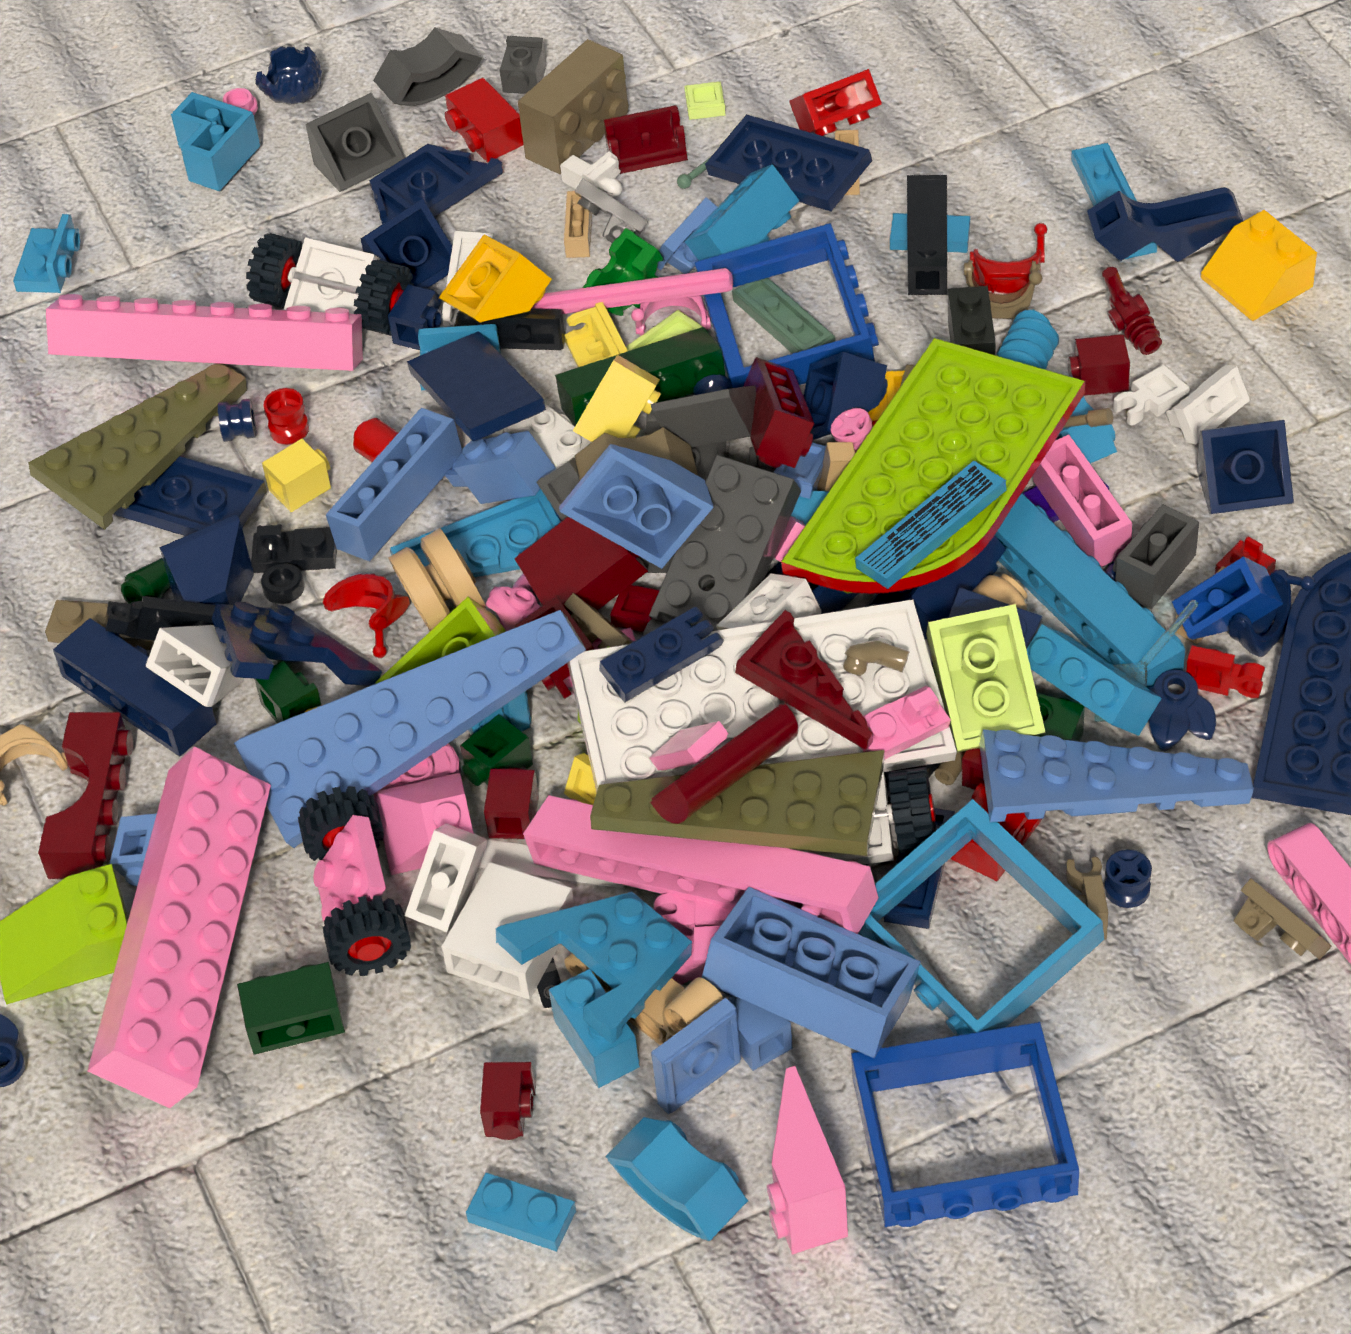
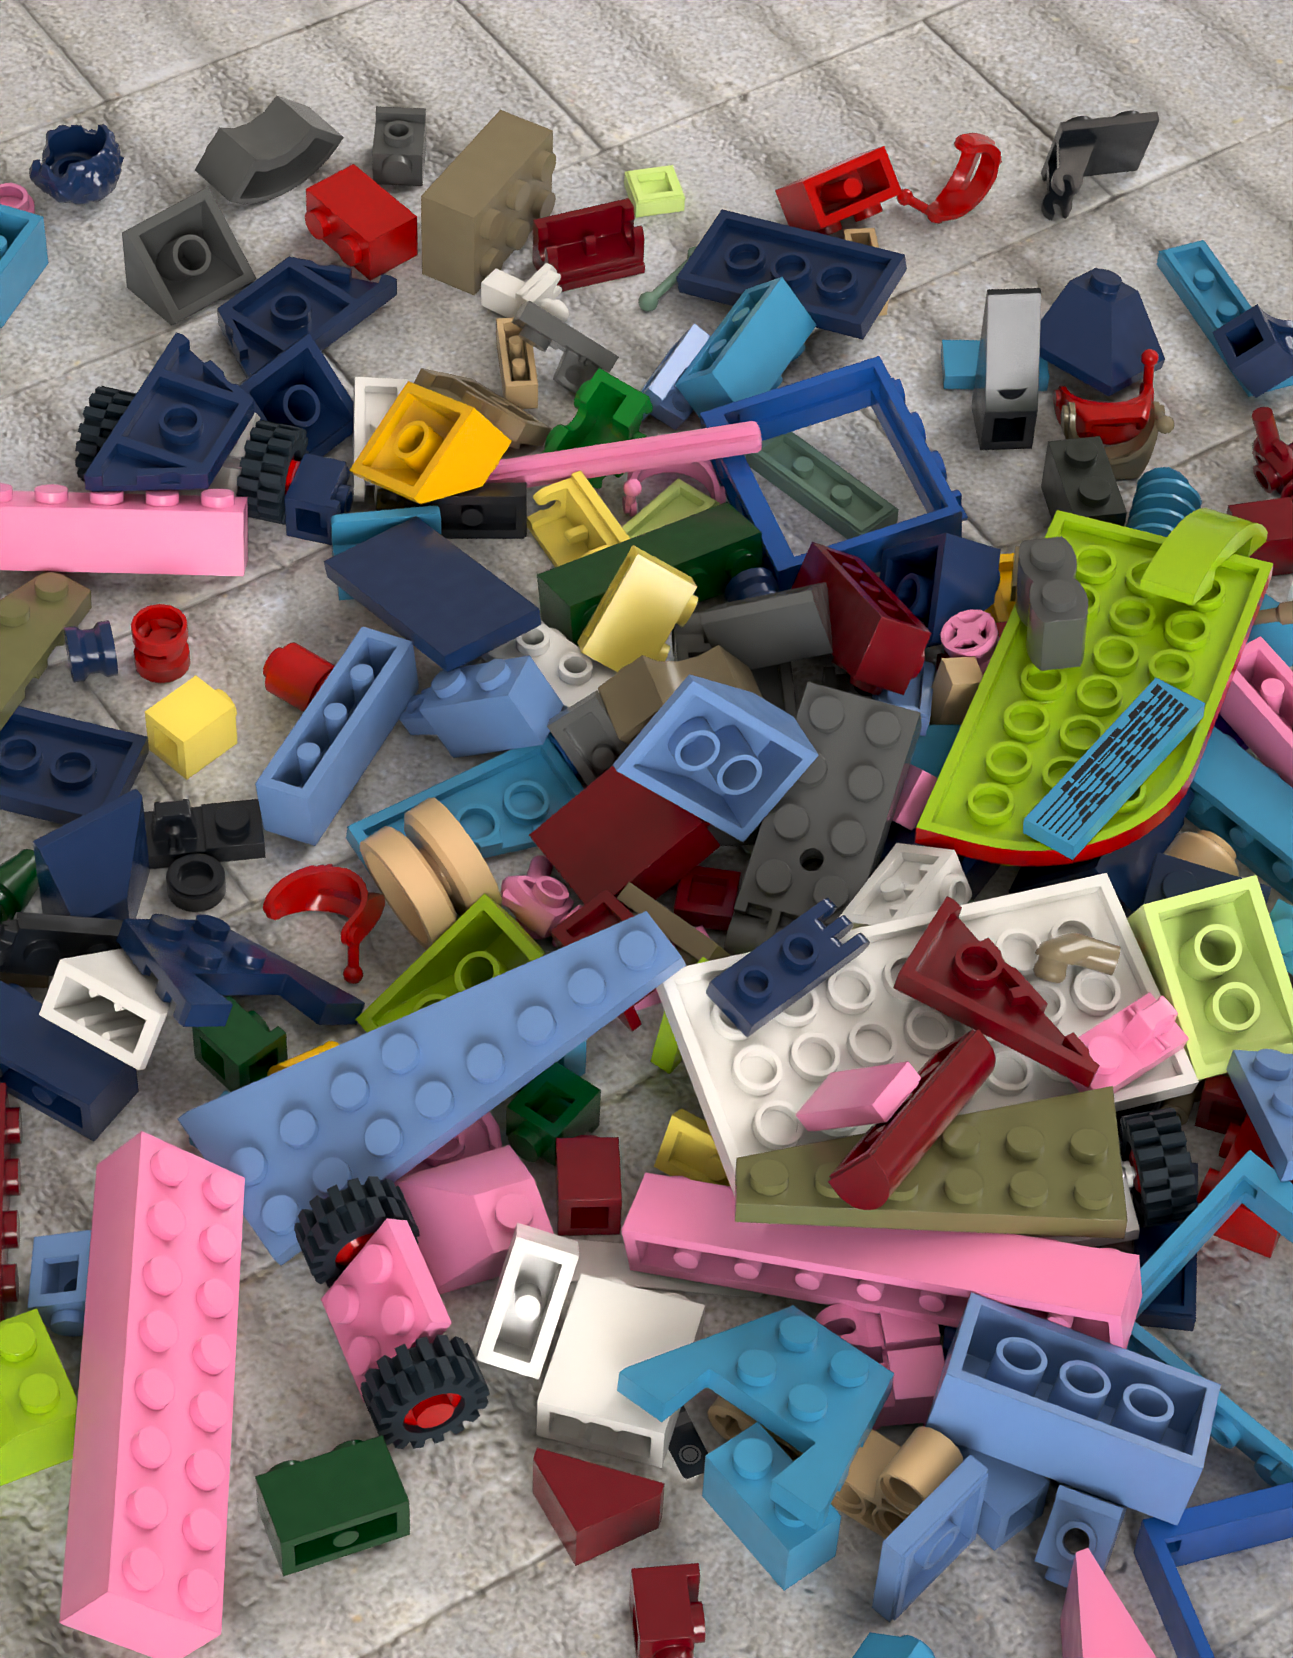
camera: 15 degrees left, 0 degrees up
(312, 264) = (173, 428): none -> dark blue wing
(474, 1020) = (594, 1504): none -> dark red slope
(545, 254) = (504, 415): none -> dark tan wing
(822, 1057) = (1080, 1510): none -> medium blue brick
(907, 404) = (1051, 603): none -> dark grey brick
(936, 100) = (959, 193): none -> red helmet
(1006, 209) = (1099, 332): none -> dark blue slope
(1016, 375) = (1193, 551): none -> lime slope
(1032, 73) = (1093, 148): none -> black plate

